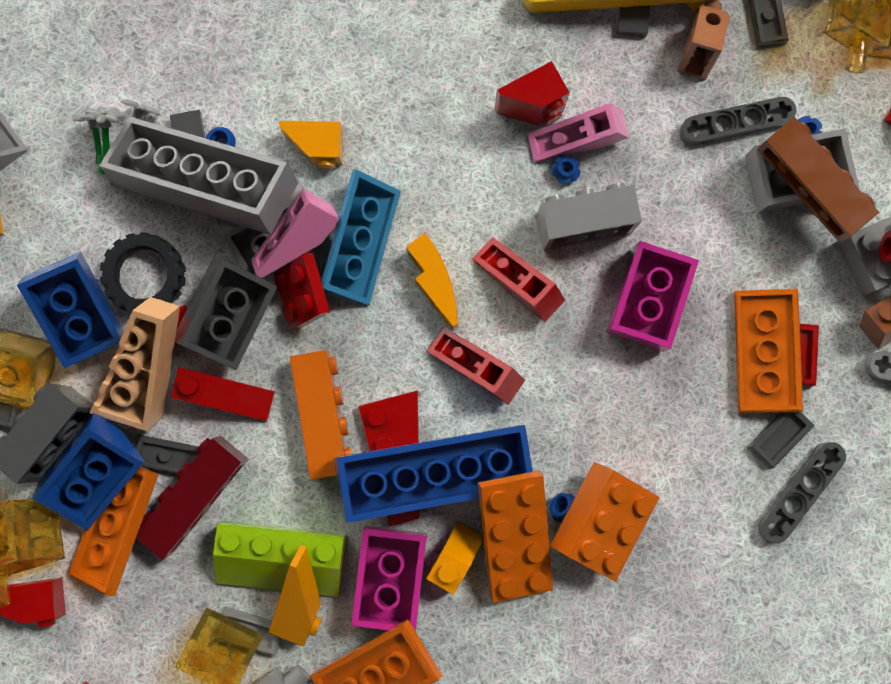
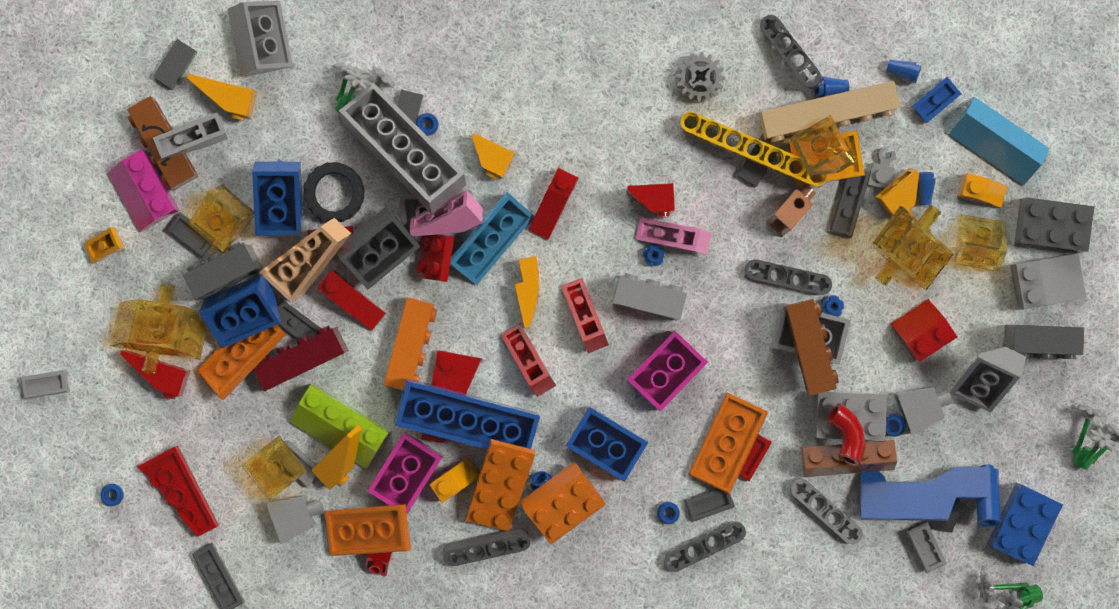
camera: 20 degrees right, 5 degrees up
(416, 161) = (553, 203): none -> red slope
(532, 619) = (485, 544): none -> dark grey beam
(623, 420) = (607, 443): none -> blue brick
(746, 472) = (668, 520): none -> blue plate

